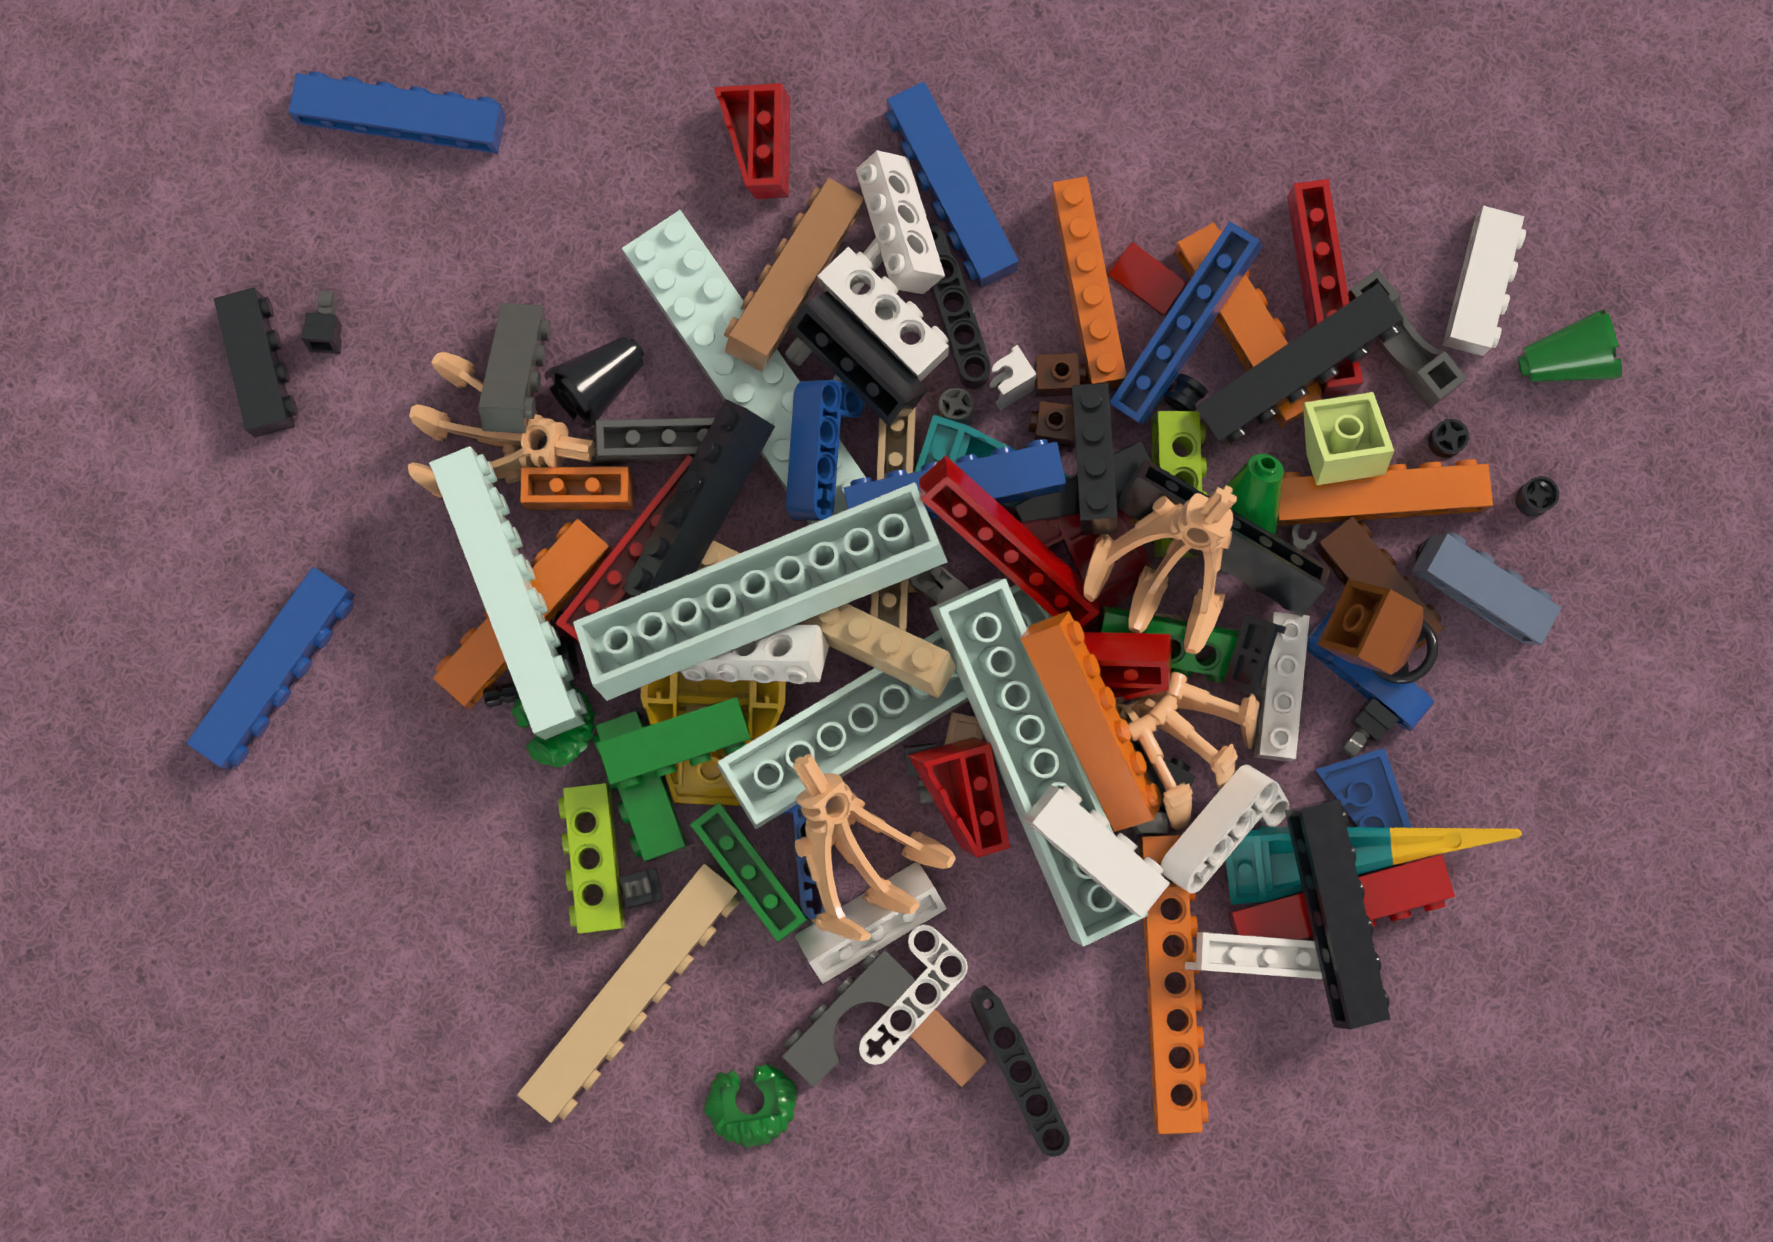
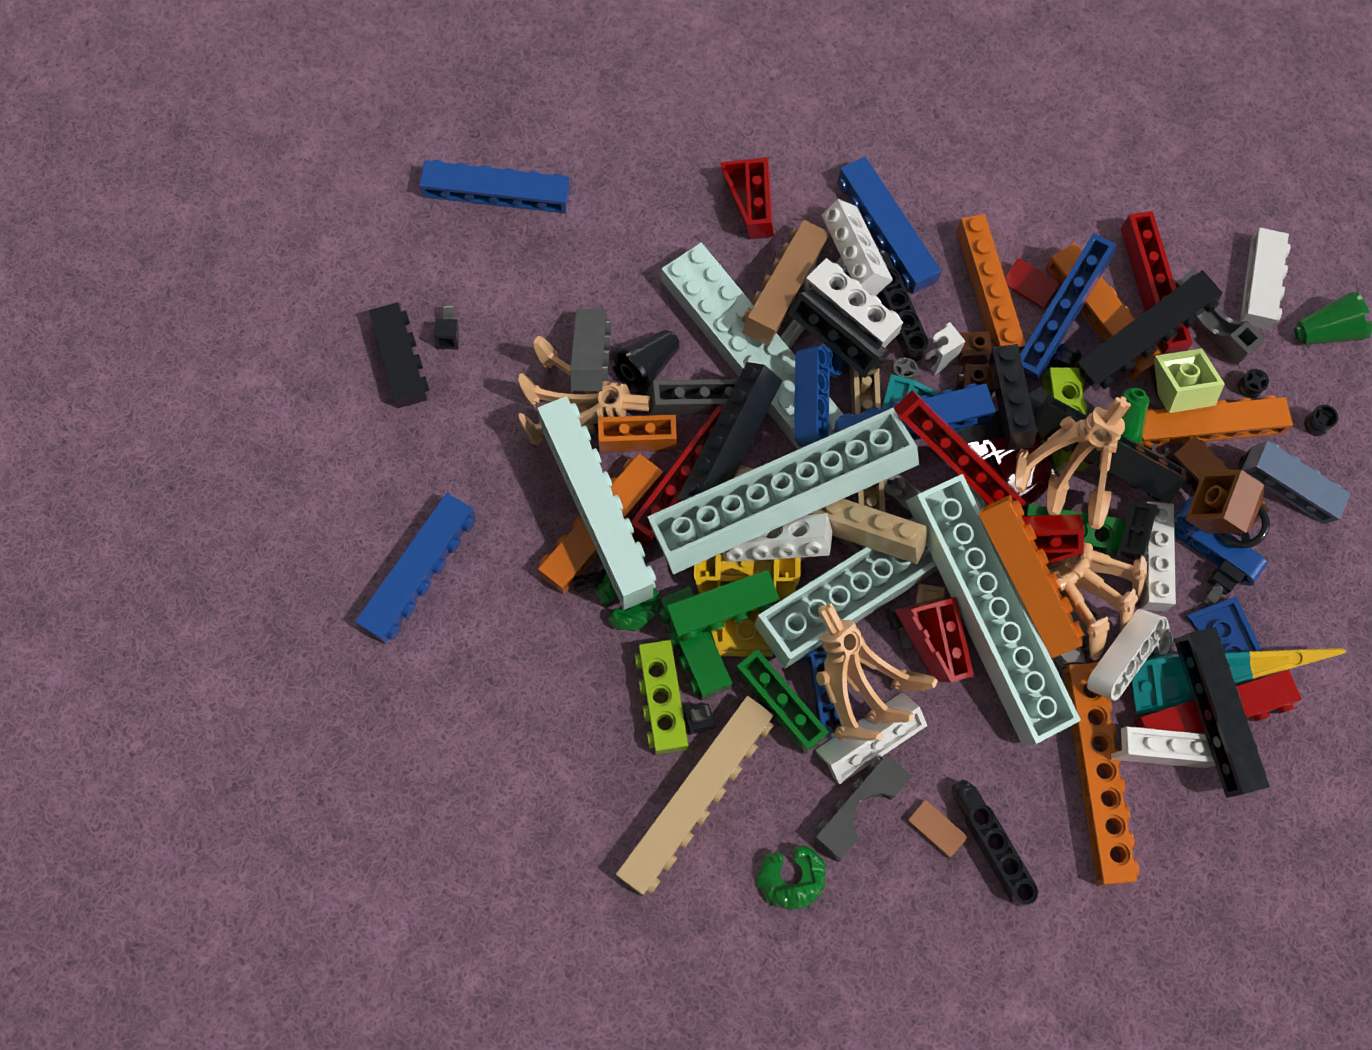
camera: 10 degrees left, 10 degrees down
(909, 1002) = (906, 794): white beam -> none
(1096, 850) = (1043, 669): white brick -> none

